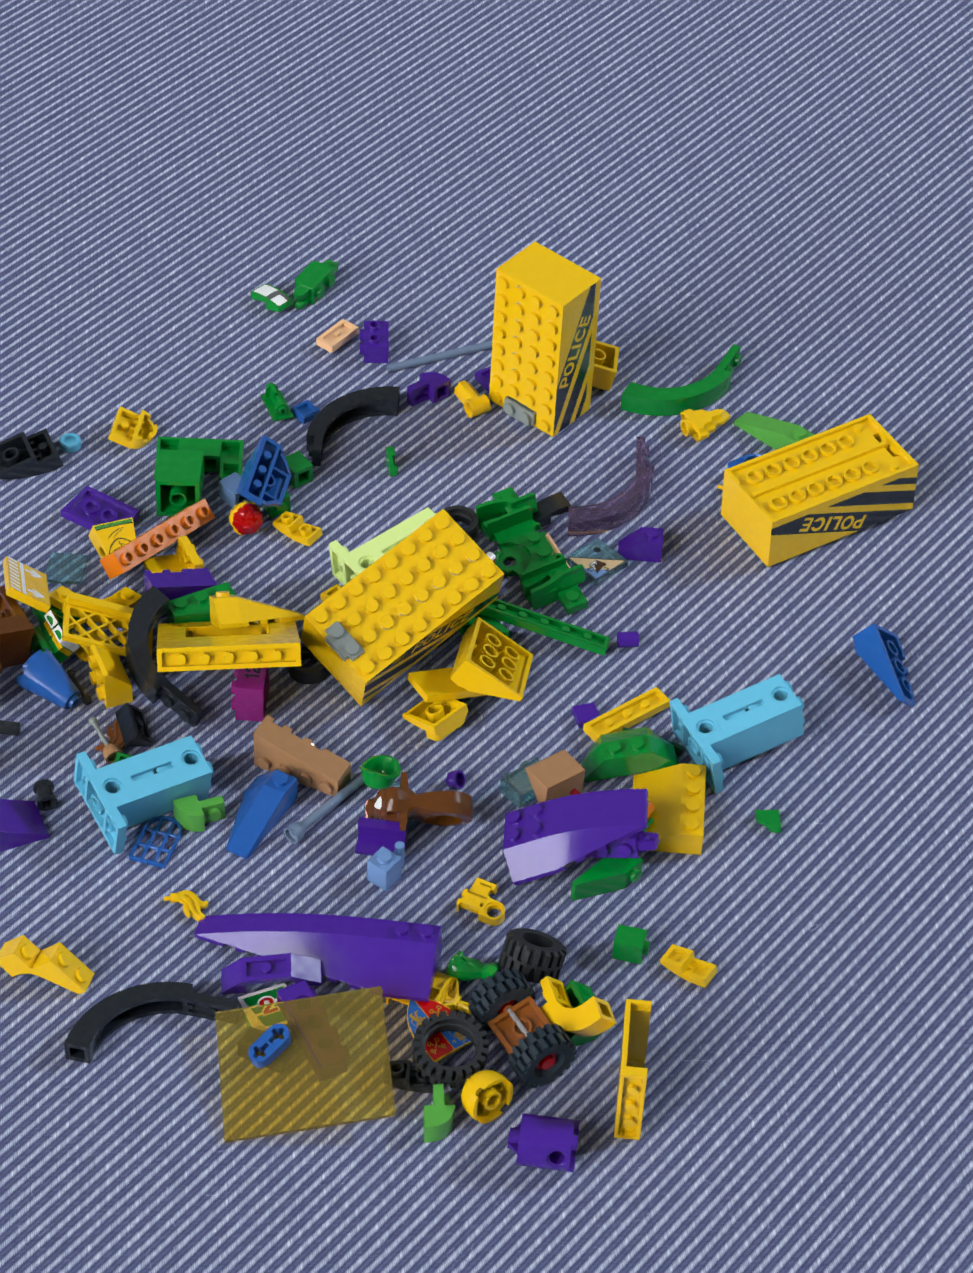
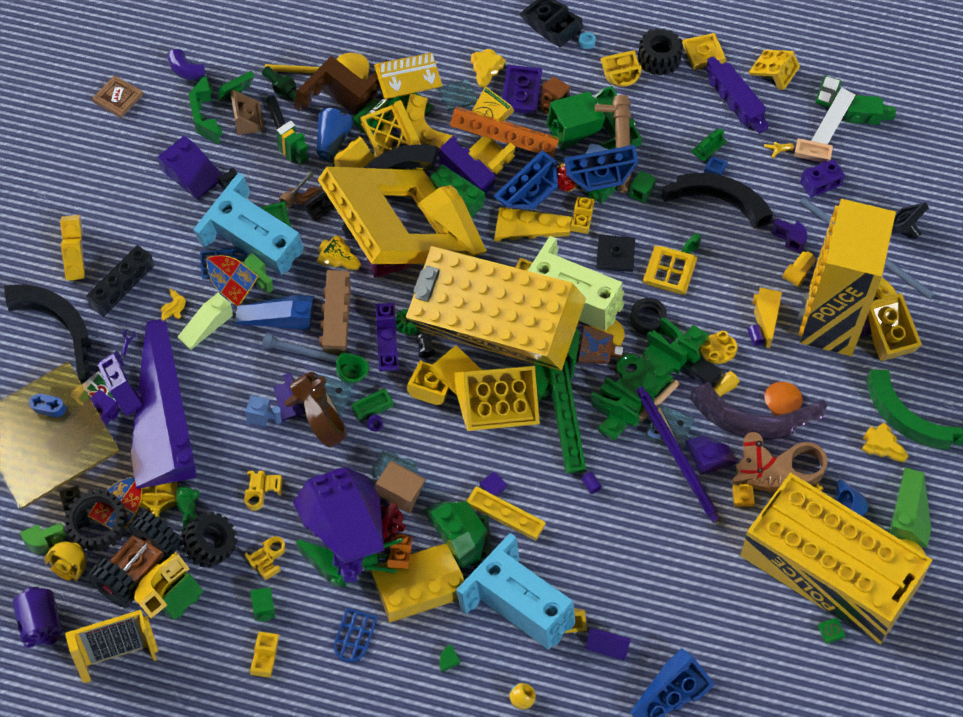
camera: 65 degrees right, 15 degrees up
(40, 718) = (292, 144): none -> green hips
(47, 529) = (486, 65): none -> yellow rock
(126, 935) = (120, 280): none -> black brick
(134, 388) = (660, 41): none -> black tyre
(138, 485) = (552, 91): none -> dark orange brick
(152, 363) = (701, 48): none -> yellow tile
(191, 832) = (231, 277): none -> shield
(209, 951) = (127, 341): none -> dark purple hand
(211, 319) = (776, 63): none -> yellow bracket
(211, 438) = (622, 130): none -> medium nougat cylinder
(217, 736) = (337, 254): none -> yellow rock
(229, 359) = (737, 94): none -> dark purple hinge
(232, 877) = (206, 320): none -> yellowish green slope
(239, 543) = (530, 185): none -> blue wedge
(276, 579) = (522, 223): none -> yellow wing
(310, 303) = (833, 116): none -> white sticker
(315, 358) = (779, 148): none -> yellow bar
(331, 721) = (386, 337): none -> dark purple slope
(339, 715) = (401, 321): none -> green gear
(361, 521) = (615, 253): none -> black plate
(384, 705) = (425, 346): none -> black bush
(398, 502) = (653, 266): none -> yellow piece
(429, 774) = (372, 405): none -> green tile
(467, 304) = (906, 219): none -> black tile
(511, 441) = (766, 311): none -> yellow slope
(527, 459) = (756, 334): none -> dark purple hinge
(529, 483) = (719, 348): none -> yellow dish
(568, 929) = (265, 561): none -> yellow piece
(573, 495) = (726, 383): none -> yellow cone
(611, 470) = (783, 398): none -> orange dish
(636, 562) = (678, 455): none -> dark purple piece
(691, 506) = (769, 472): none -> medium nougat animal
(701, 878) = (356, 644): none -> blue window
(703, 539) = (743, 495): none -> yellow tile
(816, 692) = (608, 643): none -> dark purple slope
(843, 774) = (522, 696): none -> yellow piece
(879, 536) = (831, 631): none -> green tile

